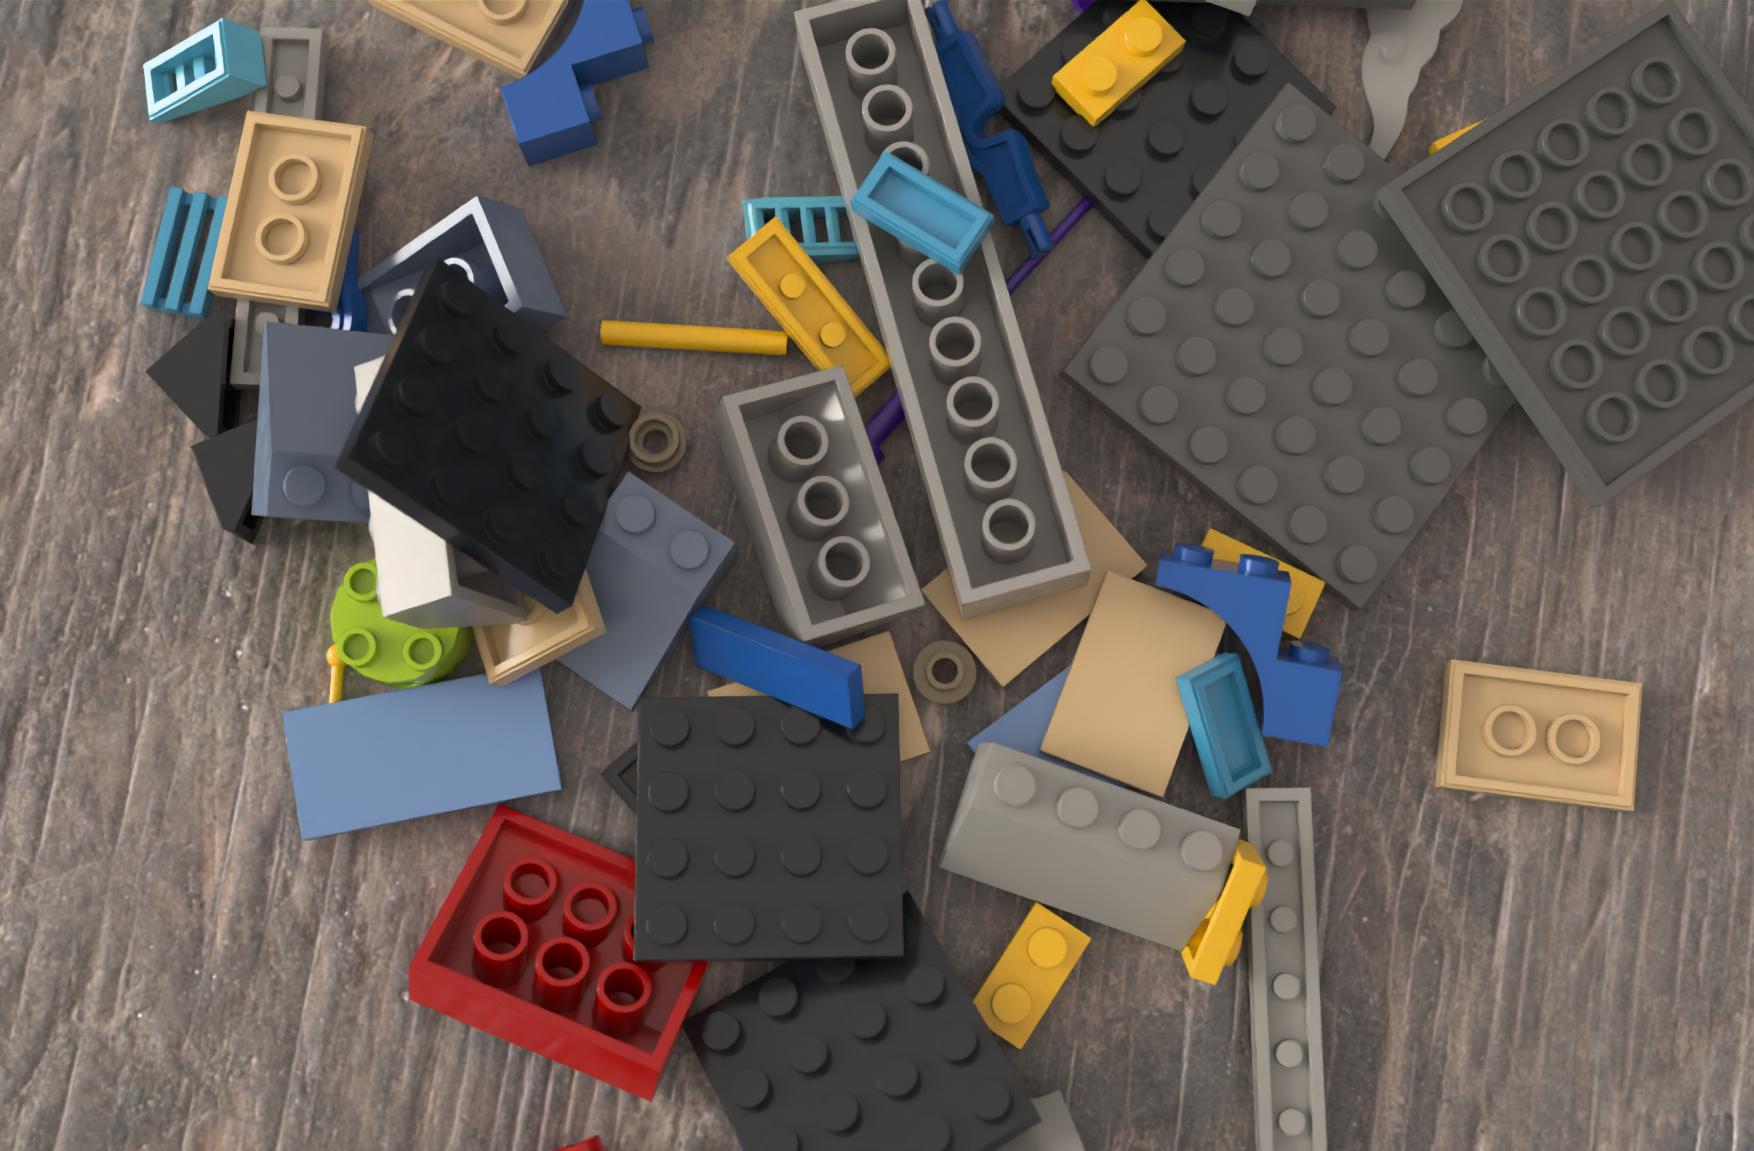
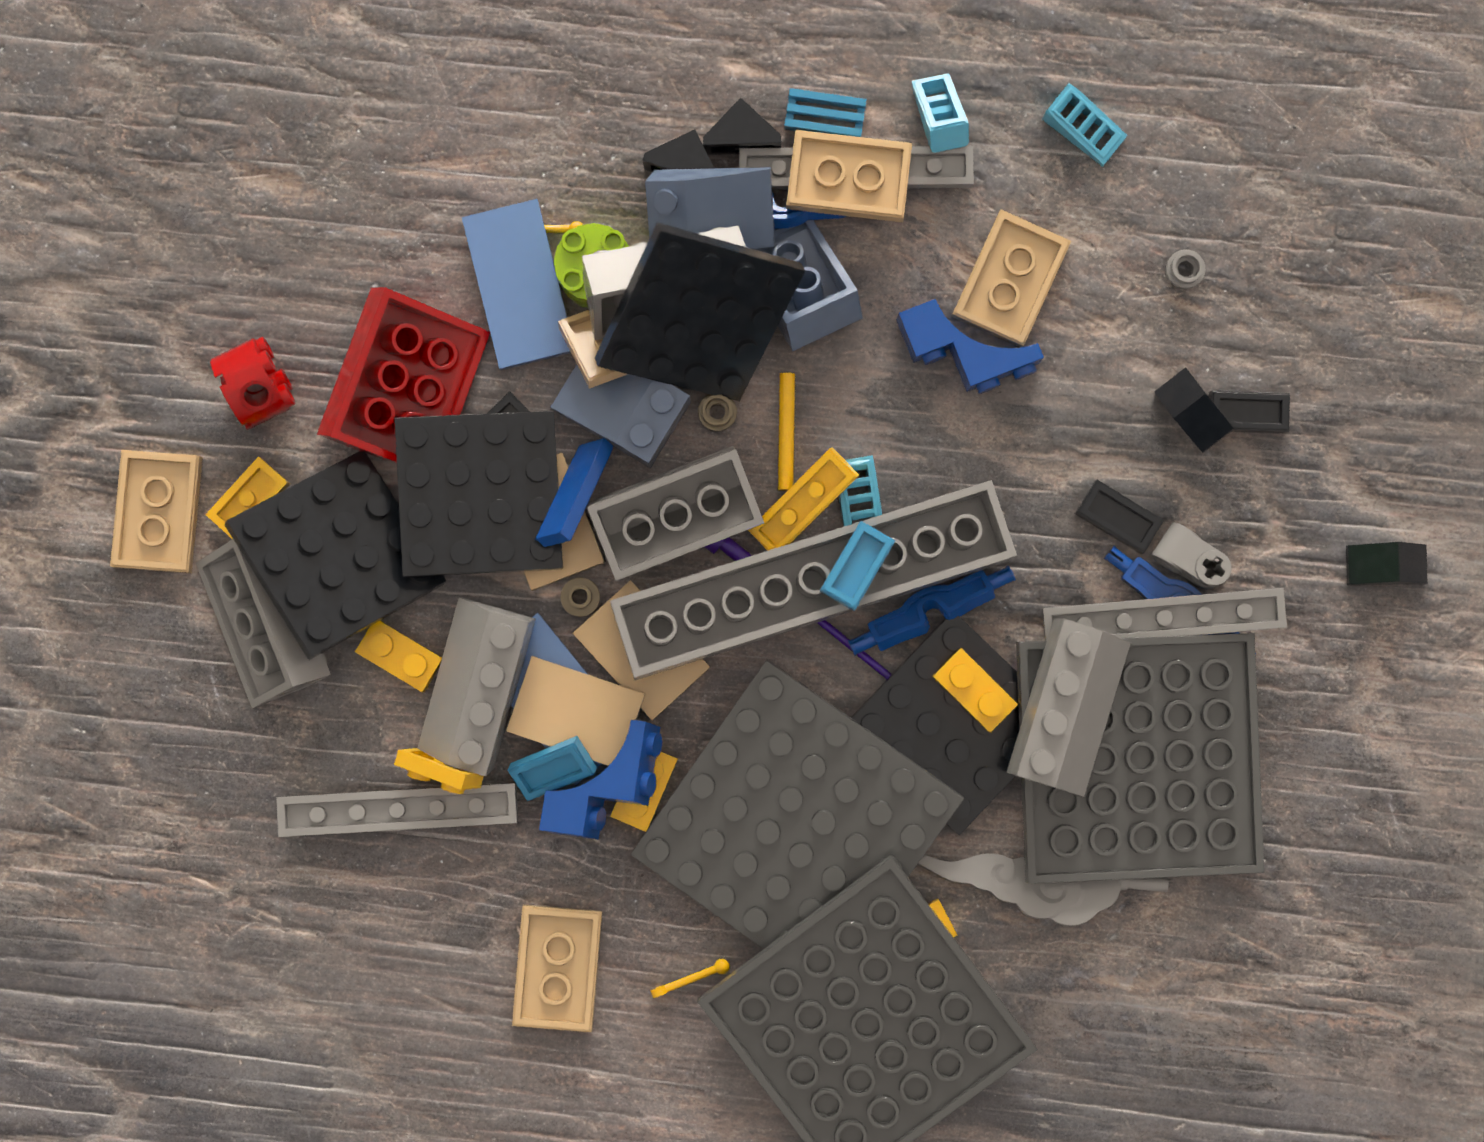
camera: 90 degrees right, 5 degrees up
(1535, 478) = (721, 967): none -> yellow hinge

